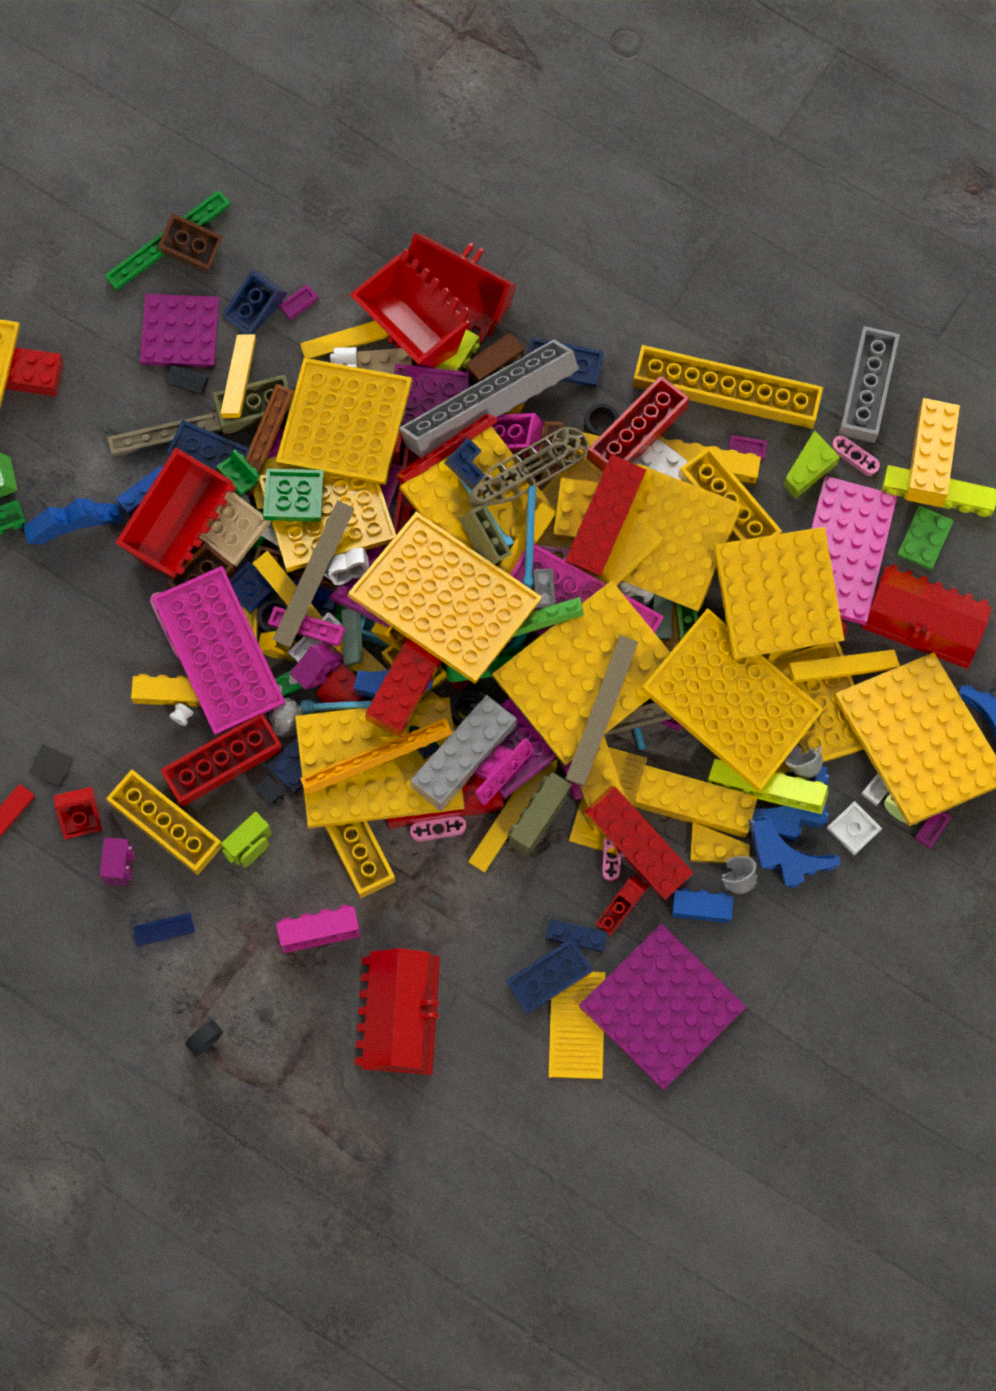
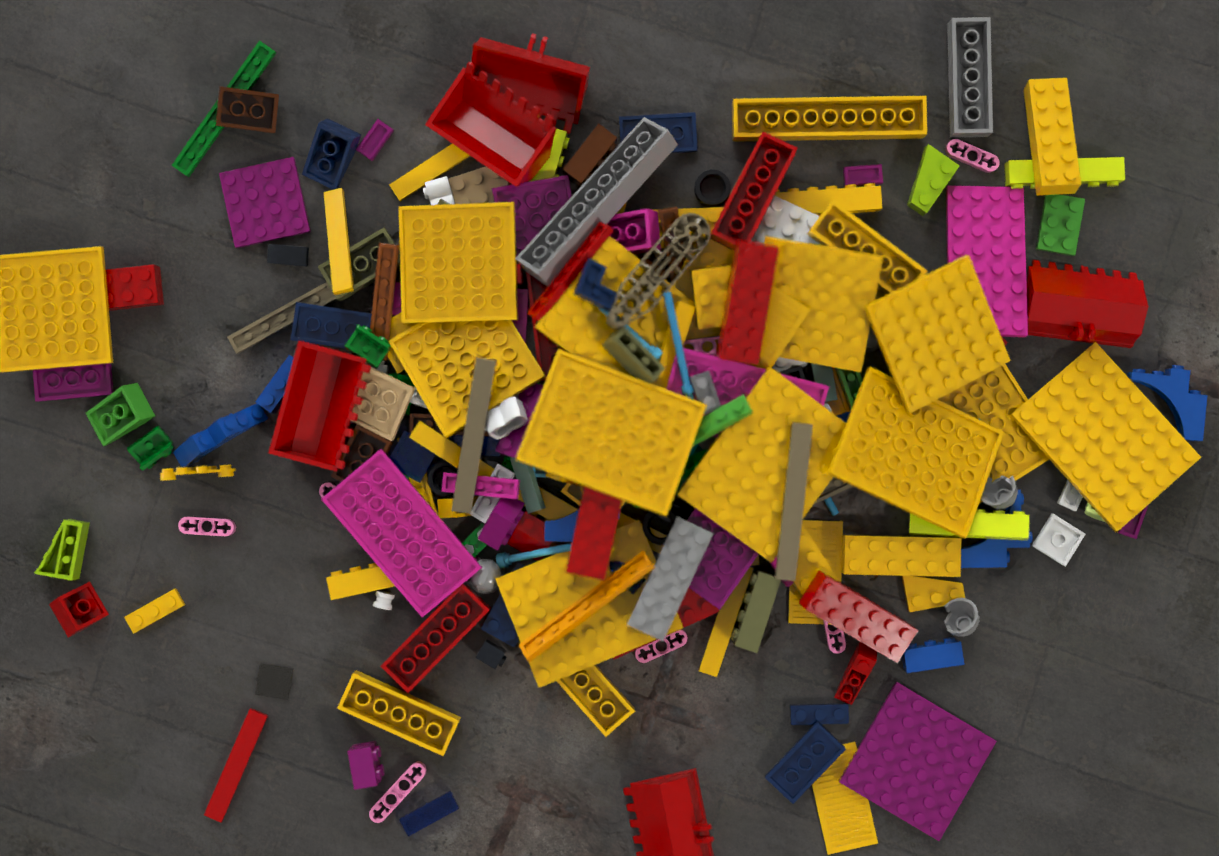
camera: 10 degrees left, 15 degrees up
(37, 611) = (193, 520): none -> bright pink beam
(46, 545) = (224, 471): none -> yellow plant
(78, 812) = (313, 723): red slope -> none
(141, 905) = (398, 792): none -> bright pink beam
(247, 841) = (484, 711): lime brick -> none
(293, 495) = (429, 356): plate -> none
(318, 929) = (575, 779): dark pink brick -> none
(500, 767) = (708, 582): dark pink bracket -> none
(792, 864) = (1006, 591): blue arch -> none
(843, 666) = (1012, 382): yellow tile -> none

